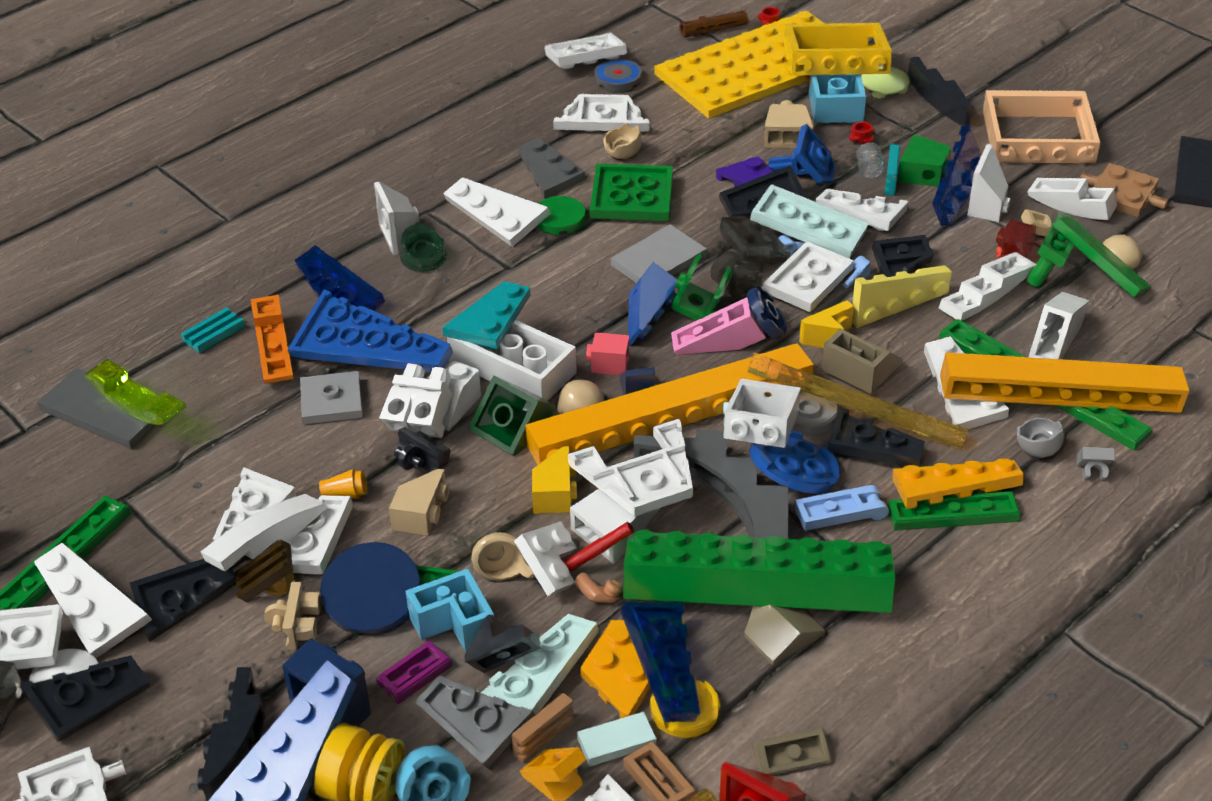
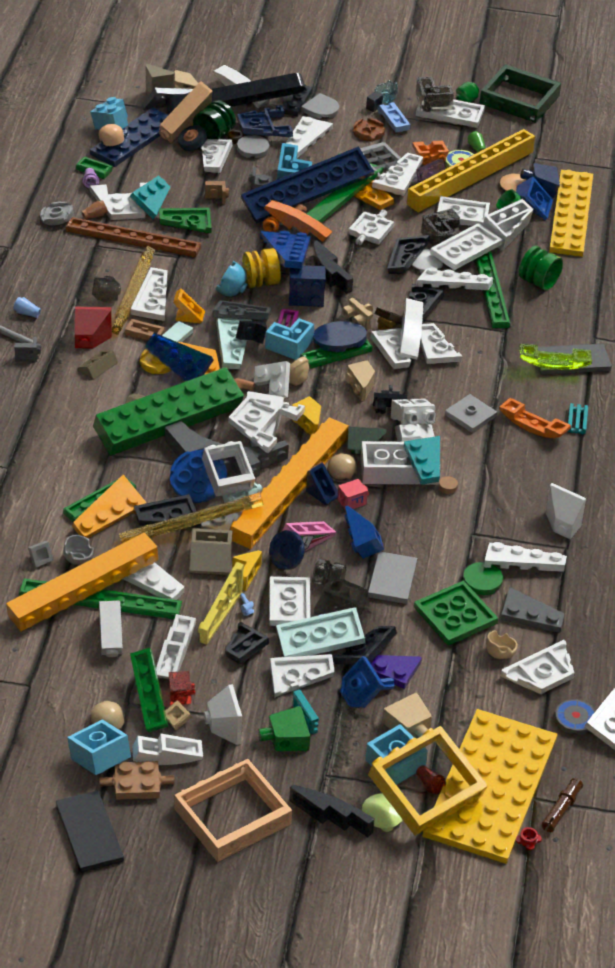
camera: 140 degrees right, 0 degrees up
(328, 274) = (546, 468): clear blue wing -> none
(349, 483) = (406, 373): light orange cone -> none
(364, 337) = (493, 434): blue wing -> none
(422, 248) = (529, 512): clear green piece -> none
(542, 728) = (207, 321): medium nougat tile -> none
(599, 546) = (253, 387): red piece -> none
(688, 290) = (343, 545): green piece -> none
(840, 507) = (155, 471): light blue plate -> none
(861, 269) = (264, 627): light blue hand -> none
(862, 132) = (355, 744): red plate -> none
(870, 160) = (328, 715): clear wheel -> none
(957, 185) = (254, 724): clear blue wing -> none
(1102, 256) = (114, 690): green tile -> none
(1157, 209) = (99, 747): none -> medium azure brick

